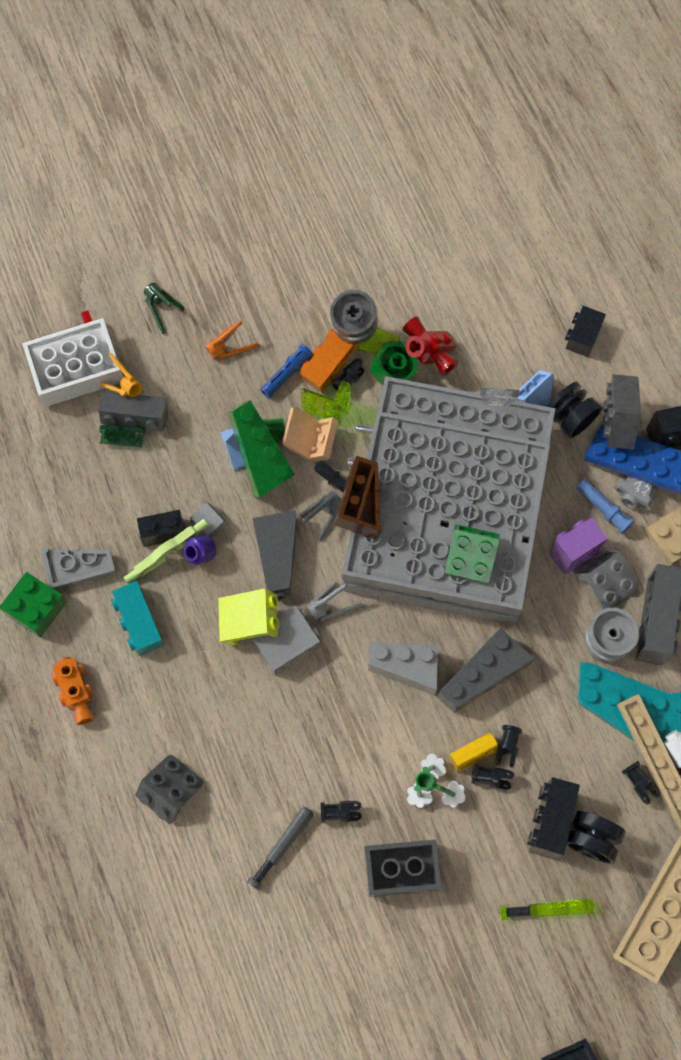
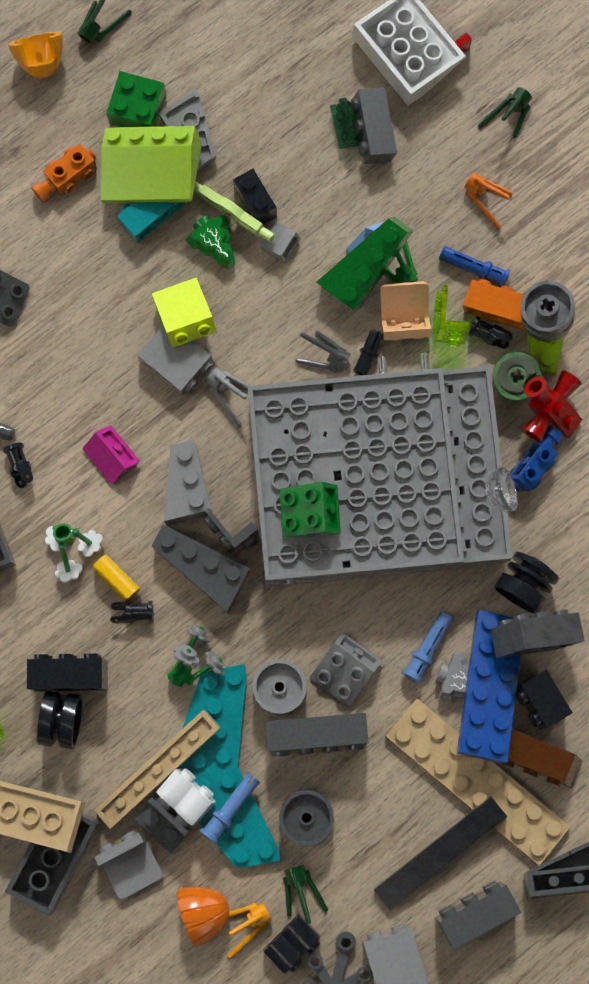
camera: 75 degrees right, 10 degrees up
(99, 607) = (149, 164): none -> lime slope
(128, 384) = (397, 110): light orange plant -> none
(186, 577) = (213, 239): none -> green rock
(200, 549) = (242, 242): dark purple head -> none
(276, 548) = (268, 319): dark grey slope -> none
(356, 725) = (110, 453): none -> dark pink panel
(360, 500) = (328, 377): reddish brown wedge -> none
(471, 624) = (242, 540): none -> dark grey bracket
(472, 371) = (542, 460): none -> blue brick
(492, 777) = (96, 604): black piece -> none
(537, 389) = (543, 538): light blue slope -> none
(574, 717) = (187, 655): none -> plant
(578, 545) = (367, 626): medium lavender brick -> none
(641, 782) = (135, 755): black piece -> none

